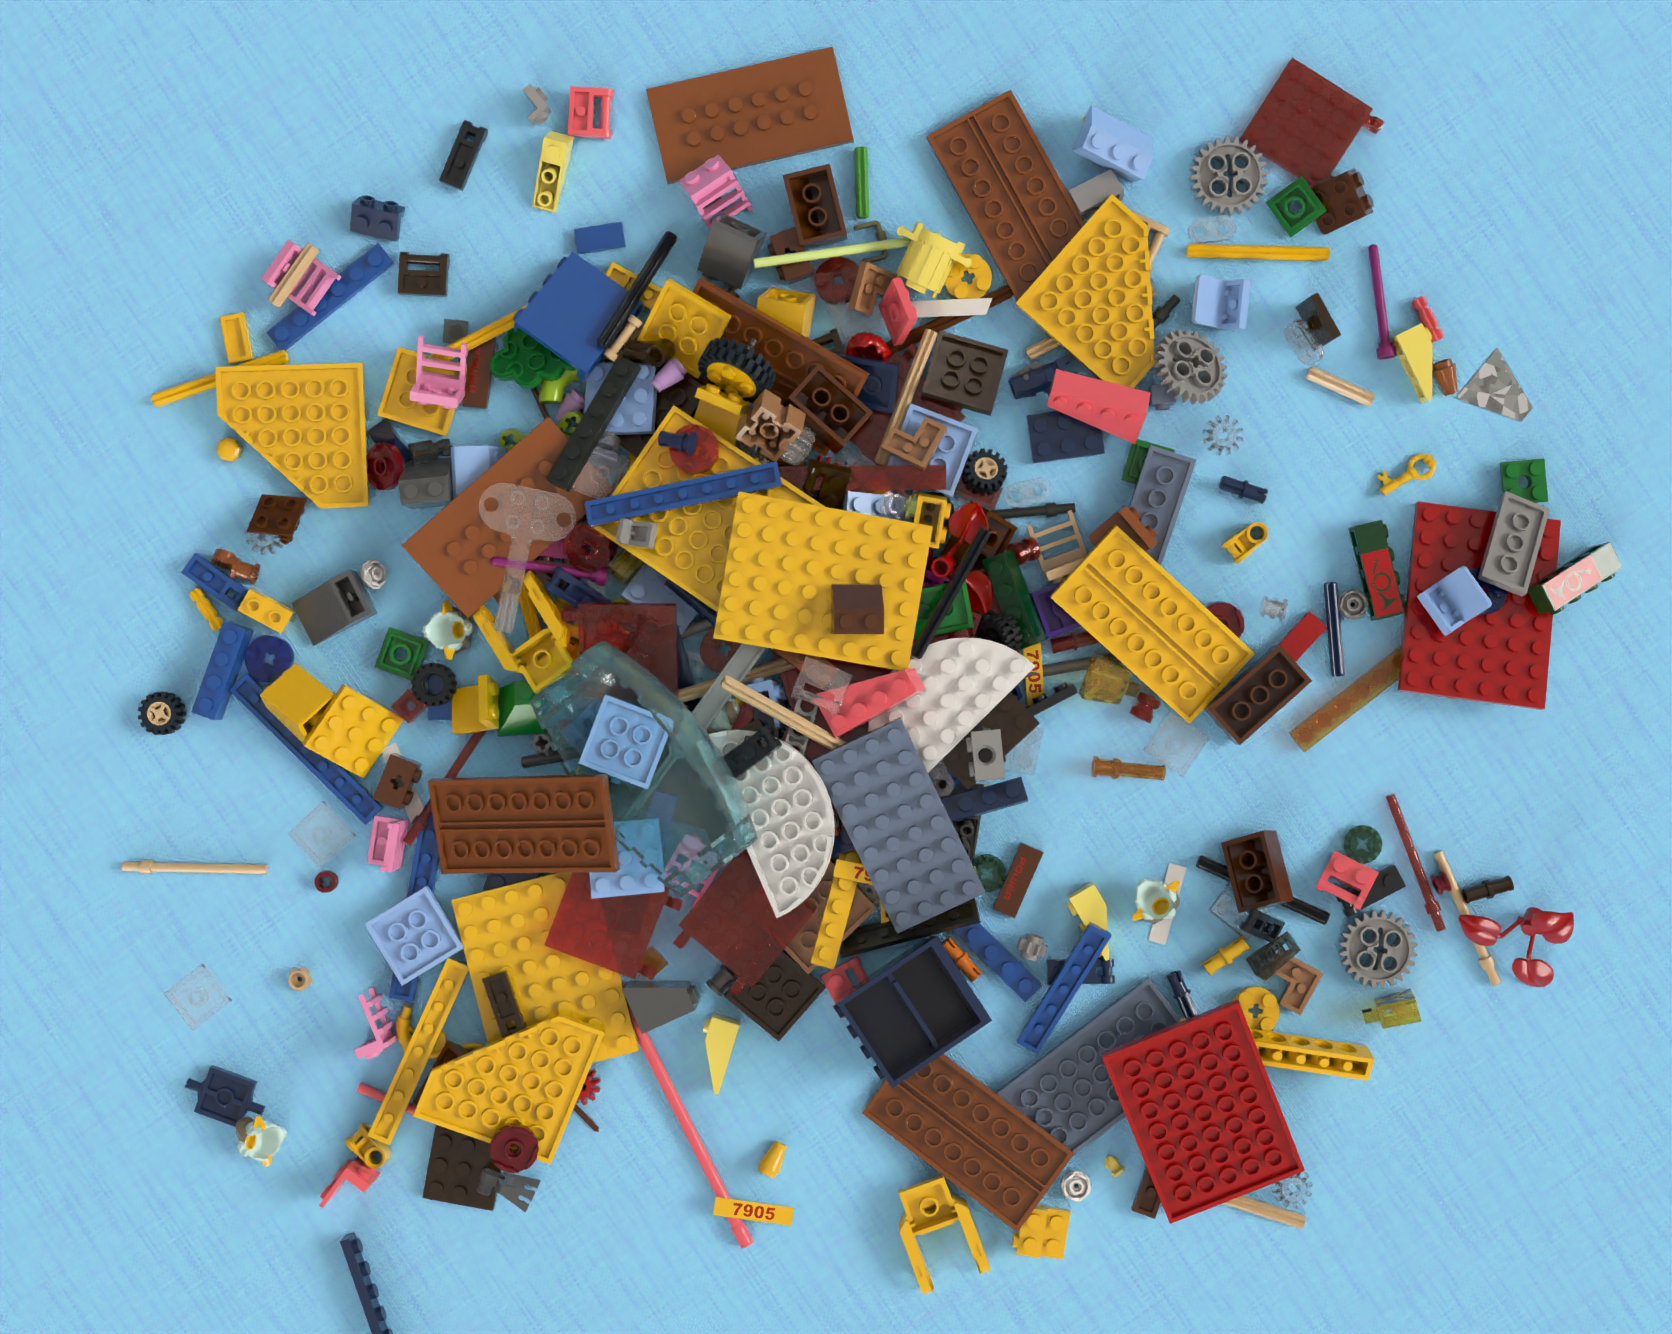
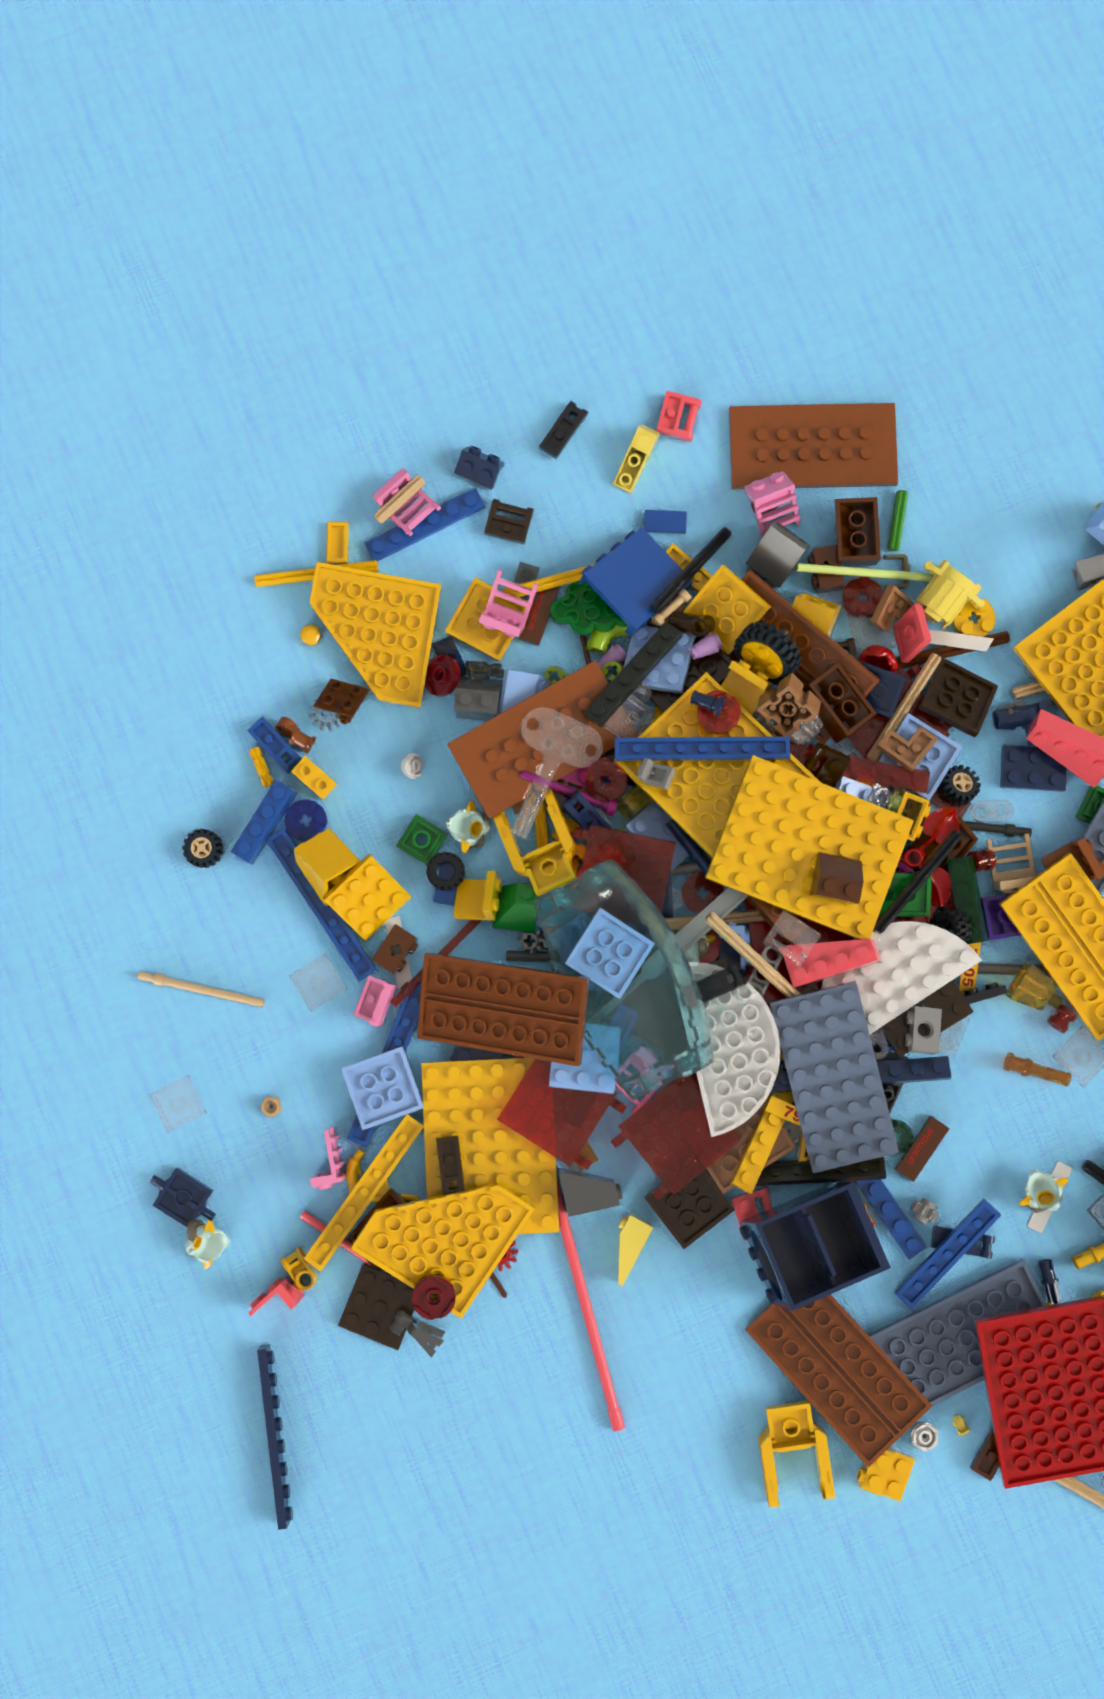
camera: 10 degrees right, 5 degrees down
(324, 874) = (313, 1018): dark red bush -> none
(334, 607) = (372, 787): dark grey slope -> none
(402, 709) = (414, 881): clear red plate -> none
(538, 99) = (637, 397): light grey bracket -> none
(721, 980) = (643, 1184): dark grey bush -> none
(753, 1211) = (630, 1399): yellow sticker -> none
(772, 1160) = (657, 1355): yellow cone -> none
(1008, 189) = (1022, 551): dark orange plate -> none
(1072, 641) = (1008, 948): clear red axle -> none
(1090, 908) = (981, 1184): light yellow slope -> none

